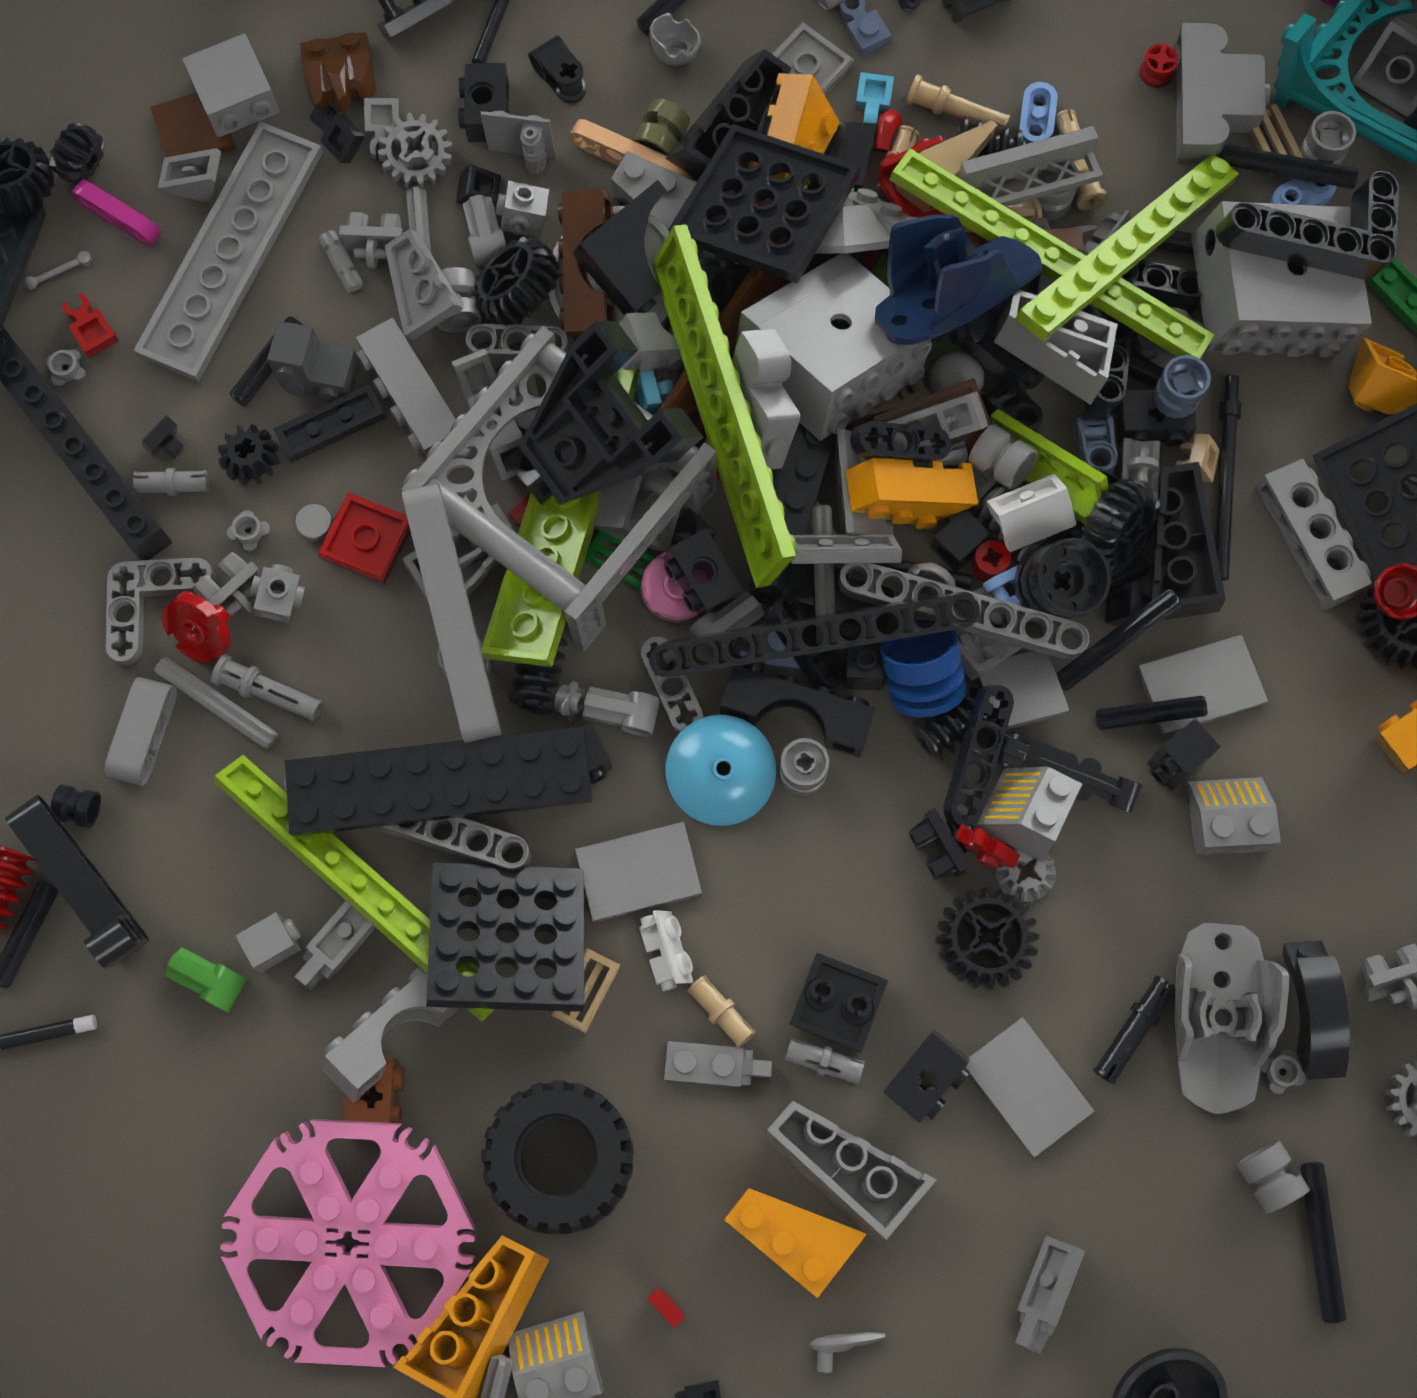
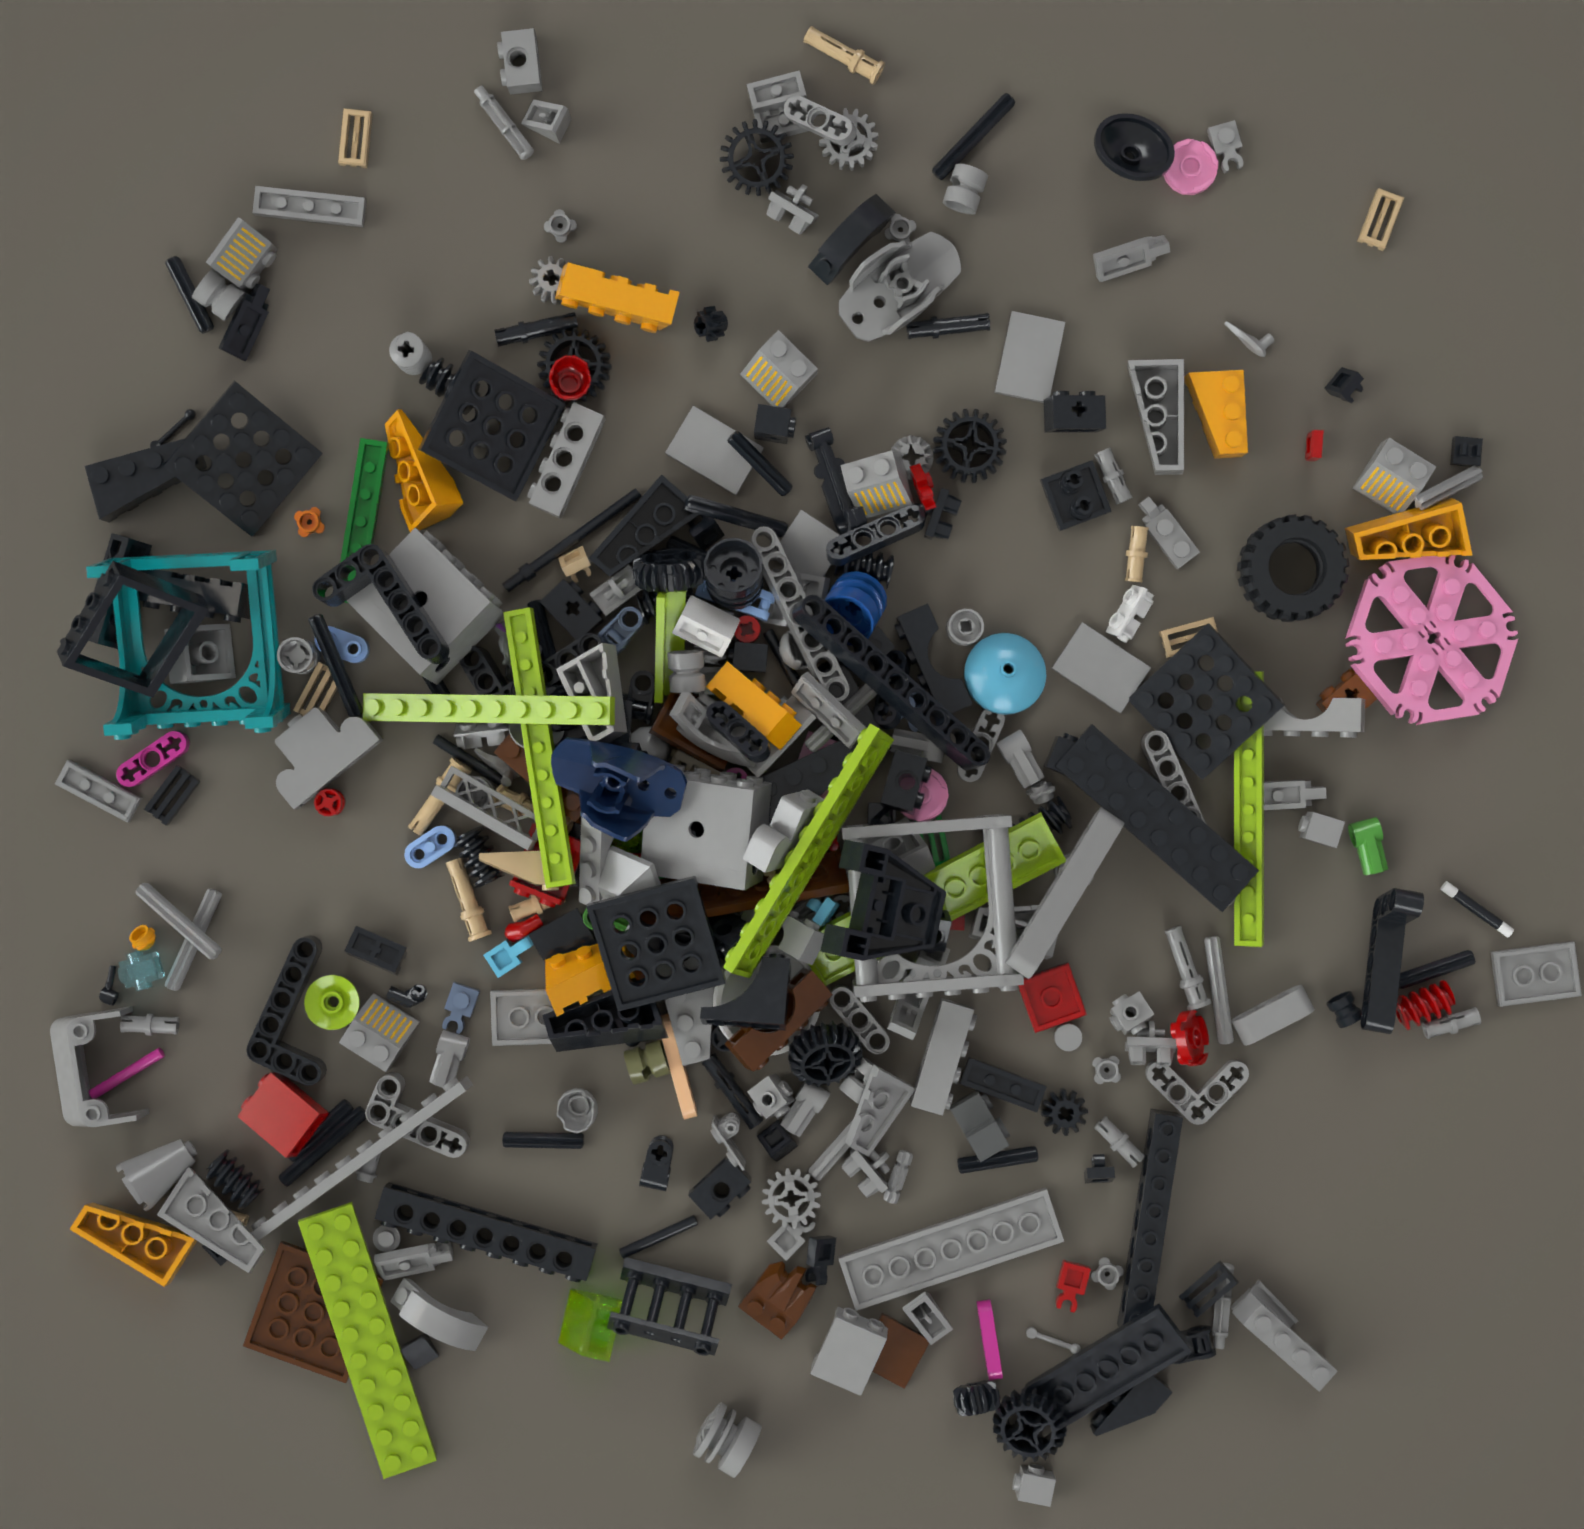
camera: 130 degrees left, 15 degrees up
(557, 182) = (713, 1065): none -> black pin
(1093, 213) = (468, 759): none -> black bar
(1181, 386) = (551, 605): sand blue wheel -> none
(1342, 788) = (710, 323): none -> black gear

